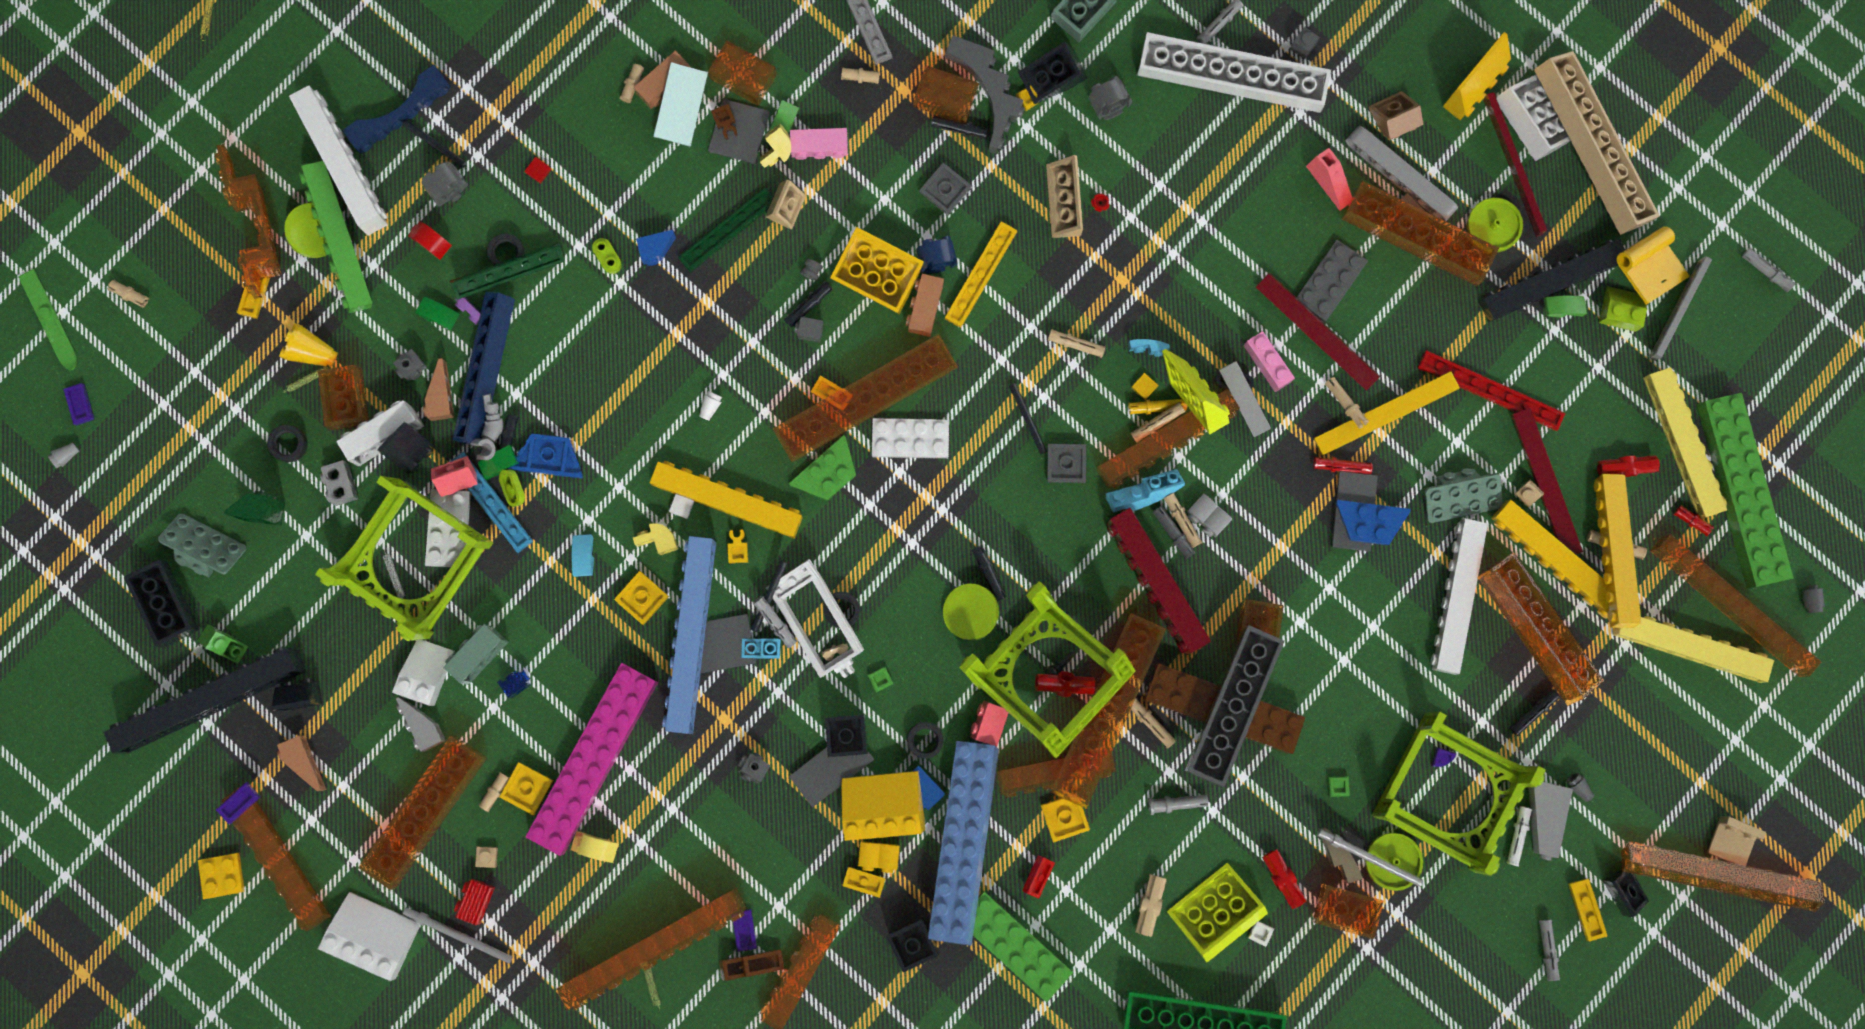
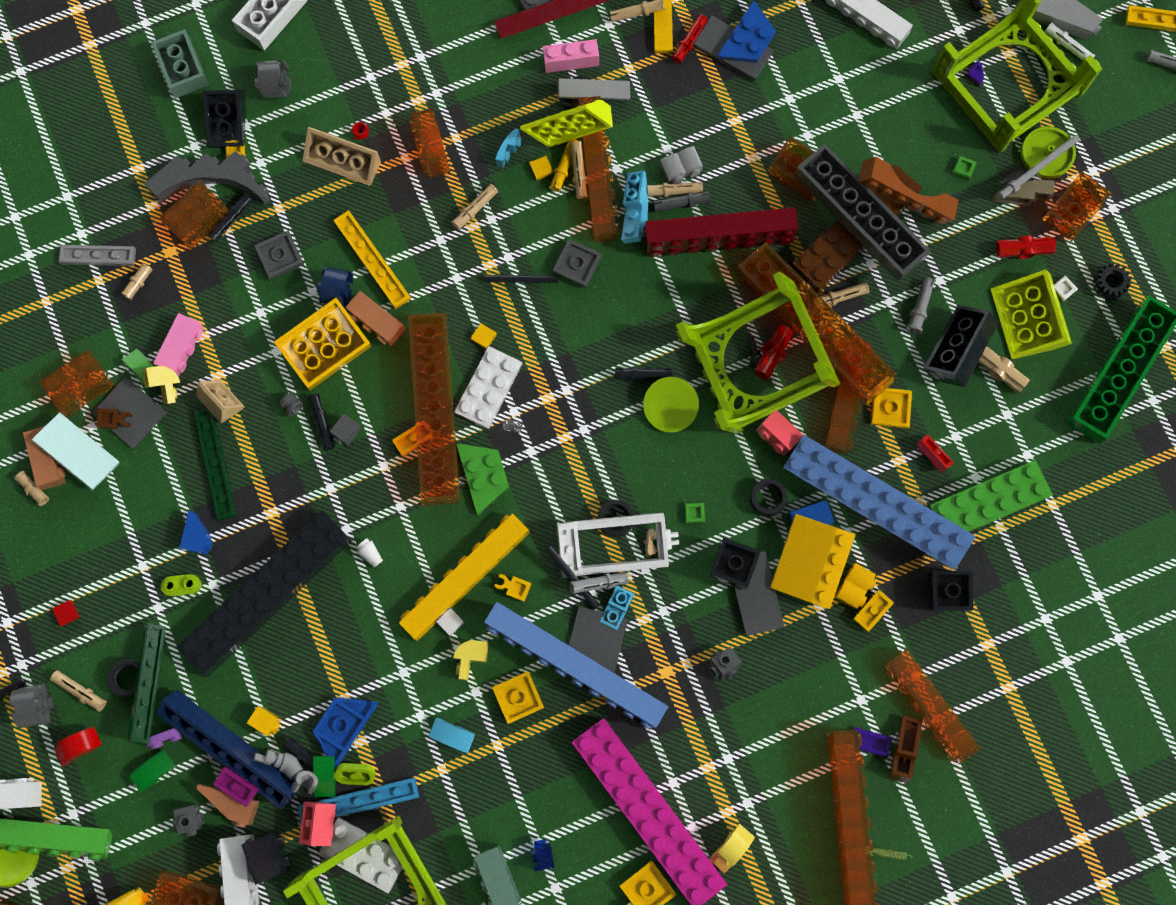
camera: 60 degrees left, 5 degrees down
(454, 391) = (236, 786): none -> magenta plate
(479, 195) = (96, 701): none -> tan pin
(521, 388) = (264, 721): none -> yellow brick
(632, 332) = (263, 594): none -> black brick
(883, 476) = (511, 425): none -> clear tile
(956, 410) = (483, 336): none -> yellow tile
(1116, 272) = (429, 143): none -> clear orange brick
(1152, 857) = (961, 345): none -> black brick
(1275, 708) = (880, 176): none -> dark orange arch
(1301, 979) = (1119, 274): none -> black tyre

